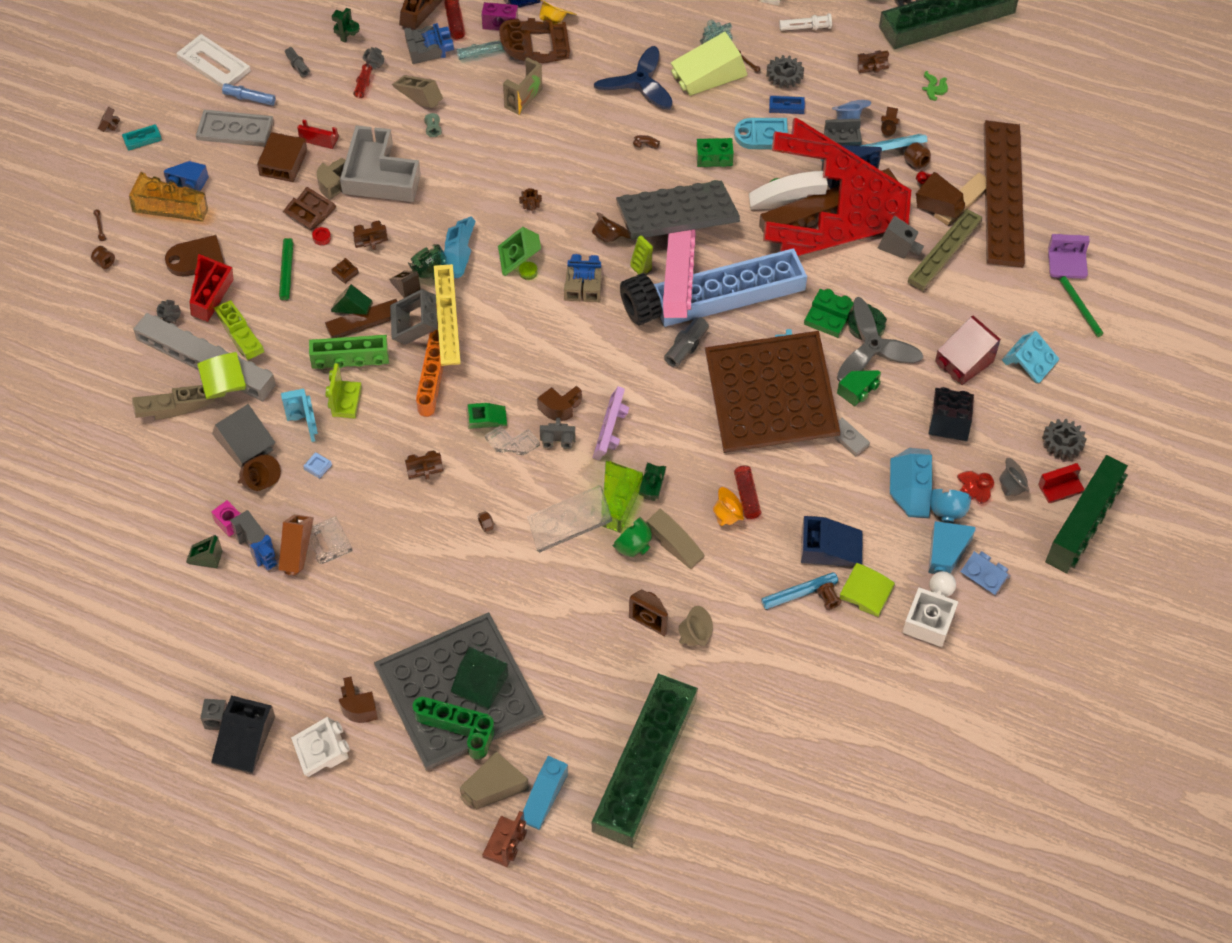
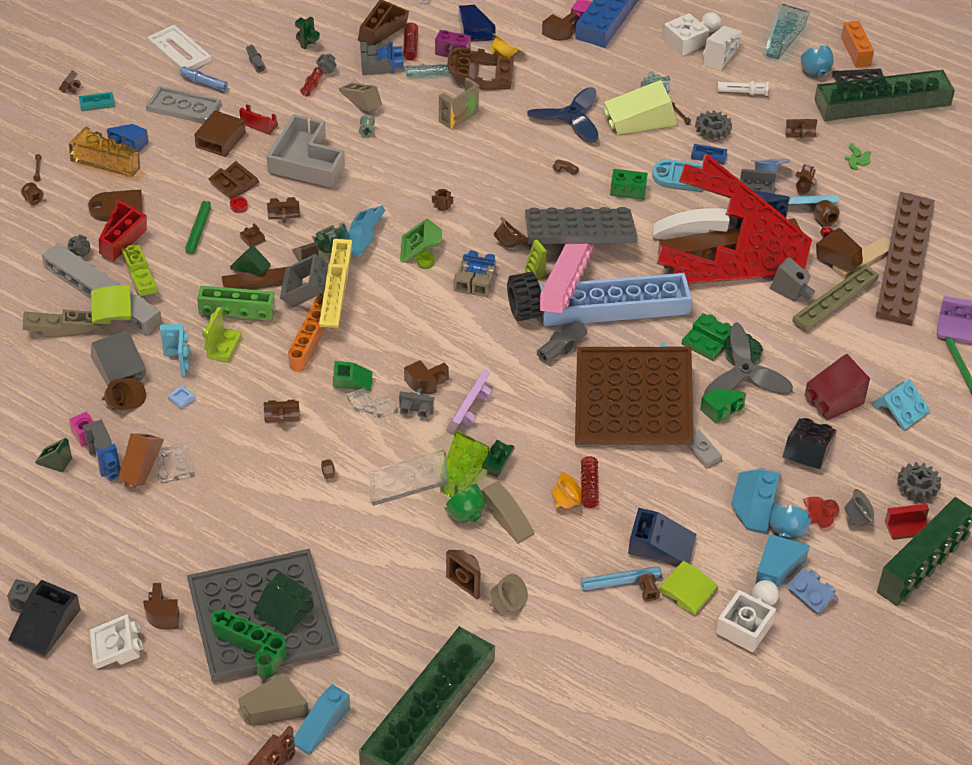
camera: 10 degrees right, 10 degrees down
(329, 178) = (257, 157): dark tan brick -> none

